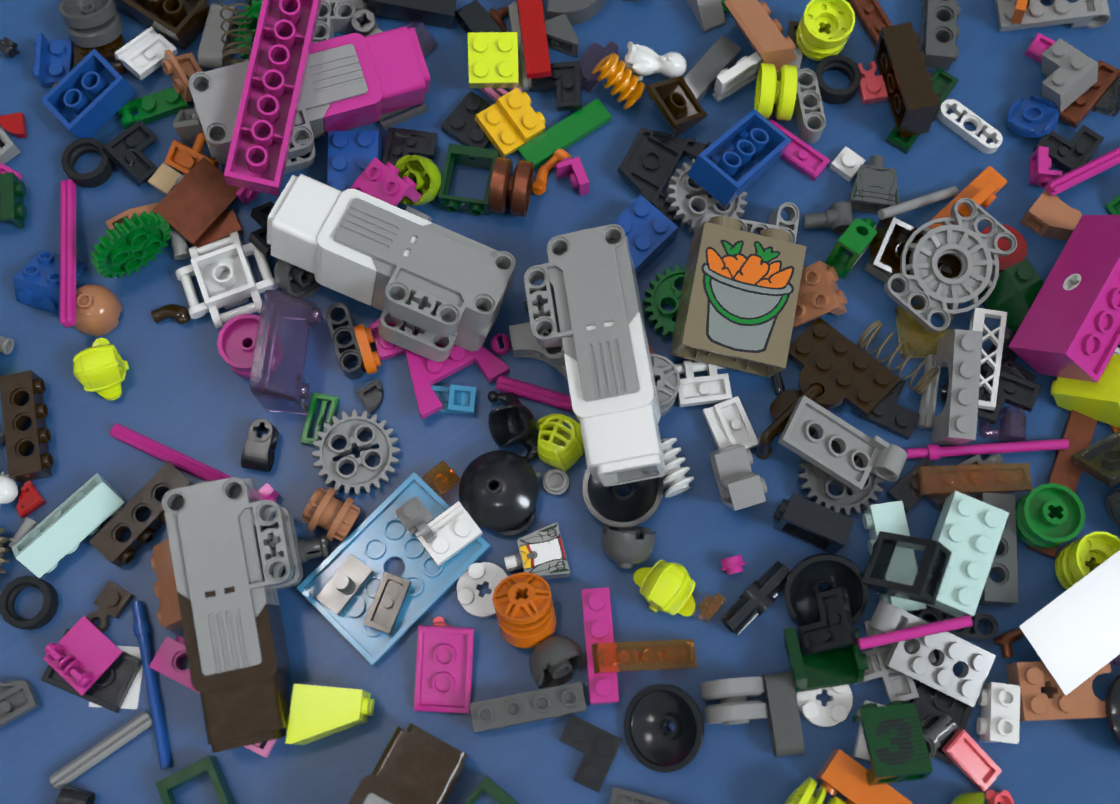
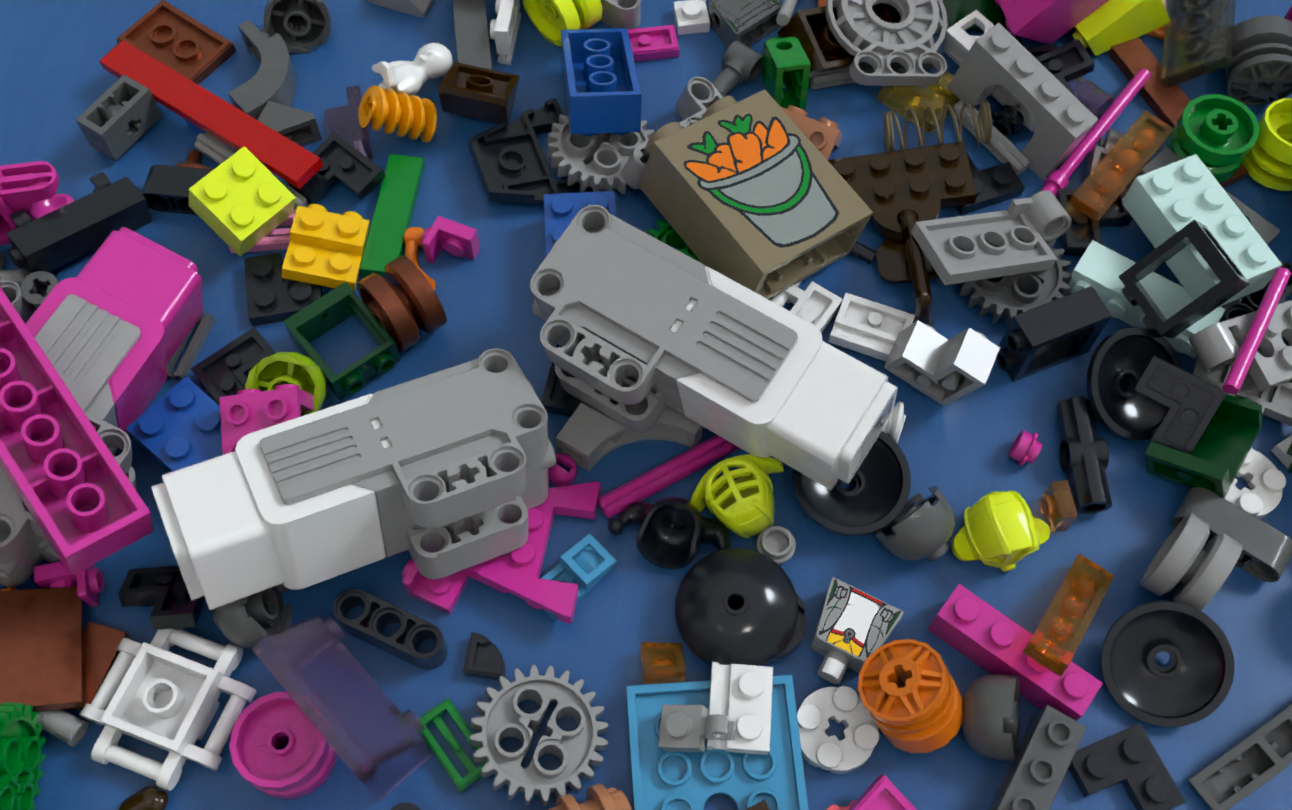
camera: 50 degrees left, 10 degrees down
(370, 358) = (441, 616): orange plate -> none

